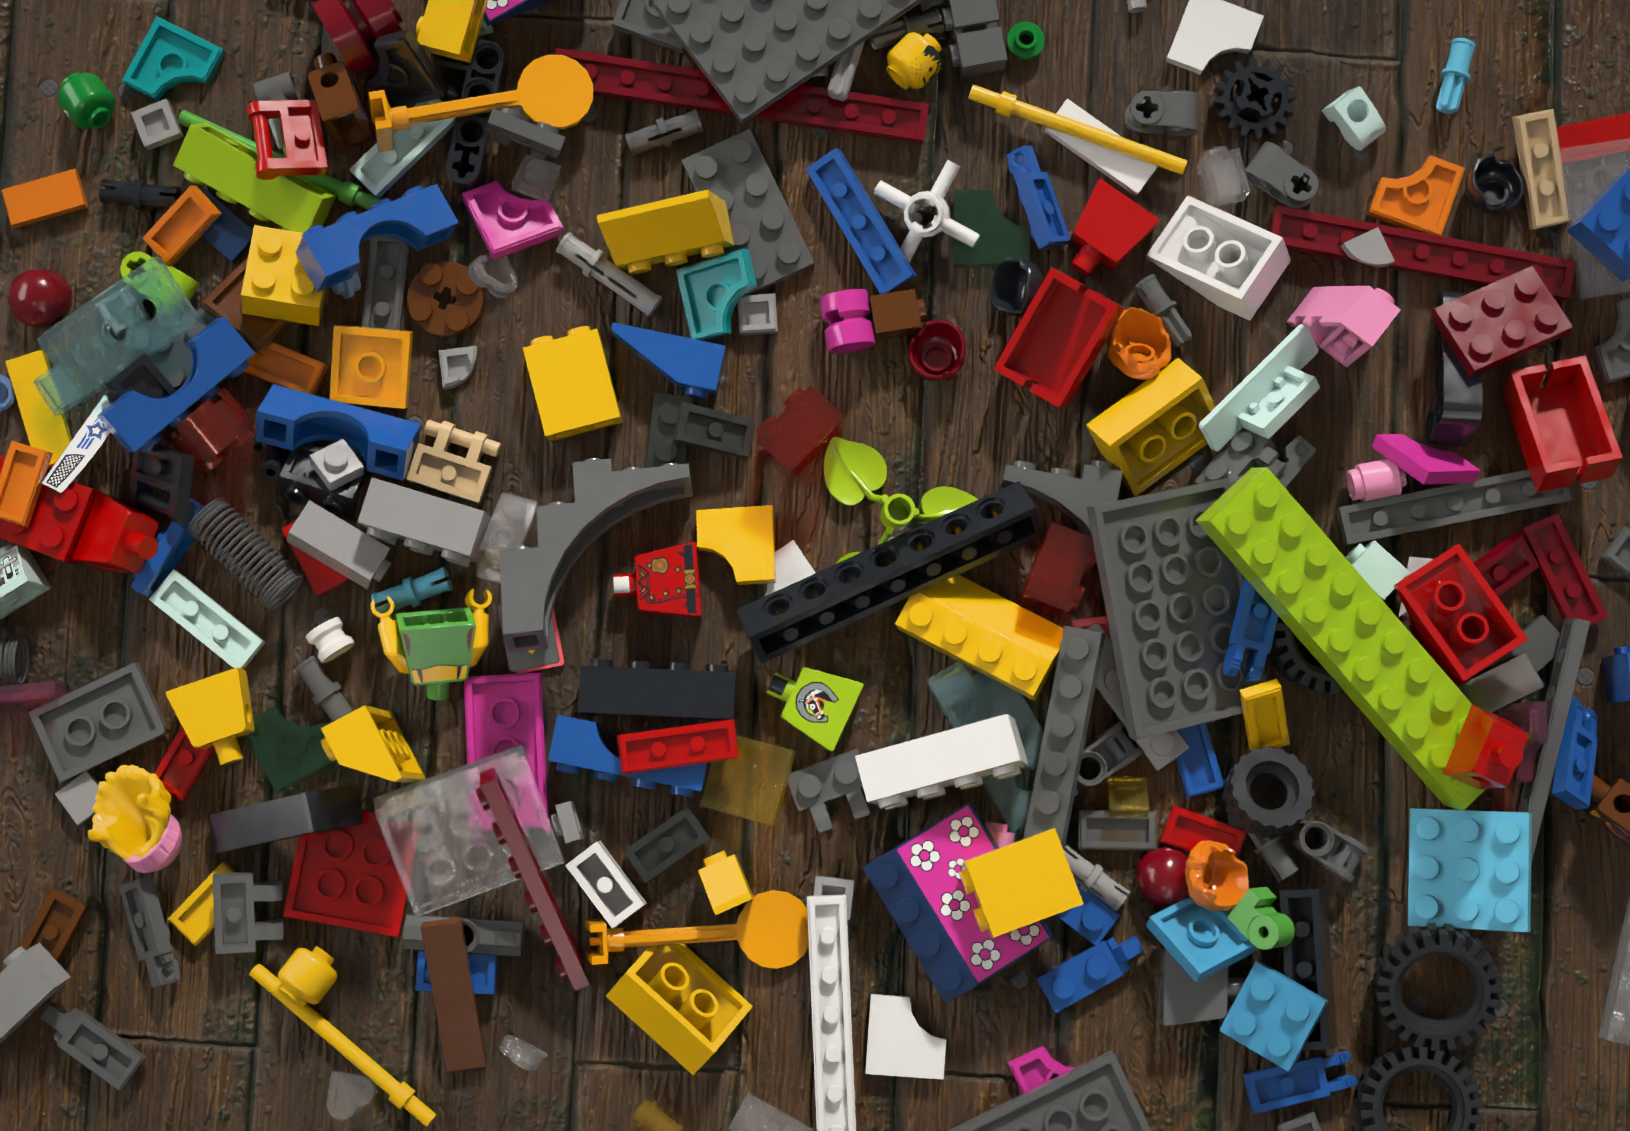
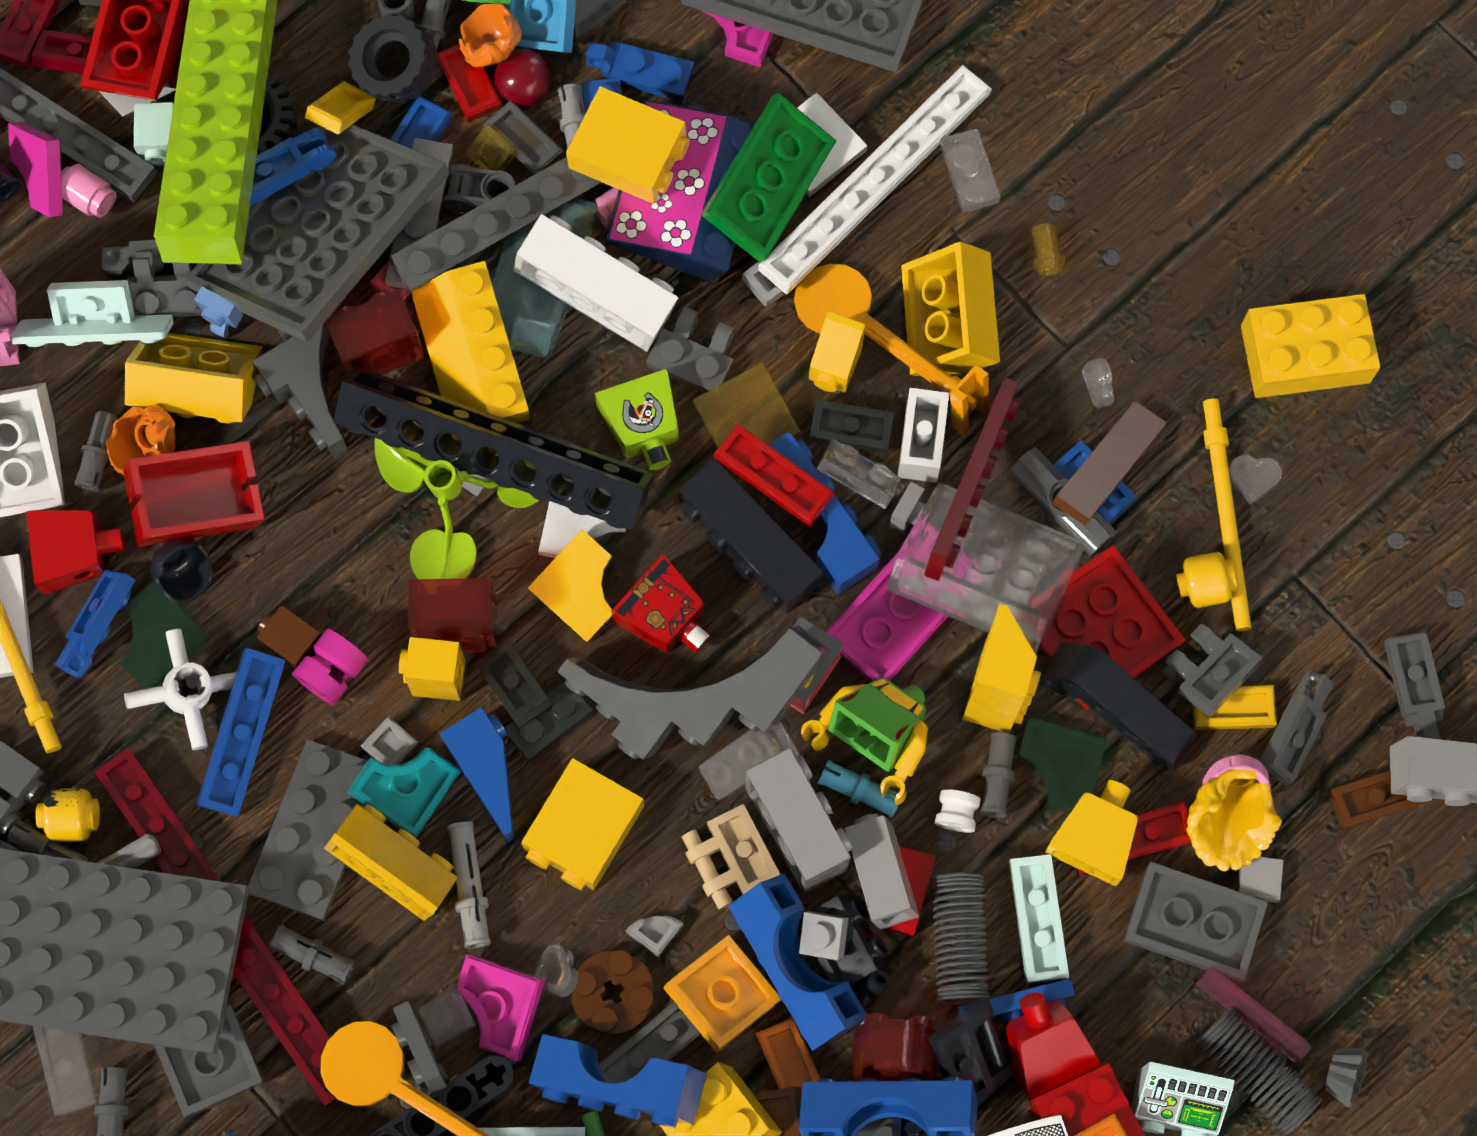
camera: 135 degrees left, 10 degrees down
(625, 812) = (859, 473): none -> clear plate
(773, 382) = (433, 668): none -> yellow brick
(902, 968) = (768, 177): none -> green tile
(938, 351) = (288, 579): dark red hair -> none
(1184, 477) = (217, 312): none -> medium blue plate

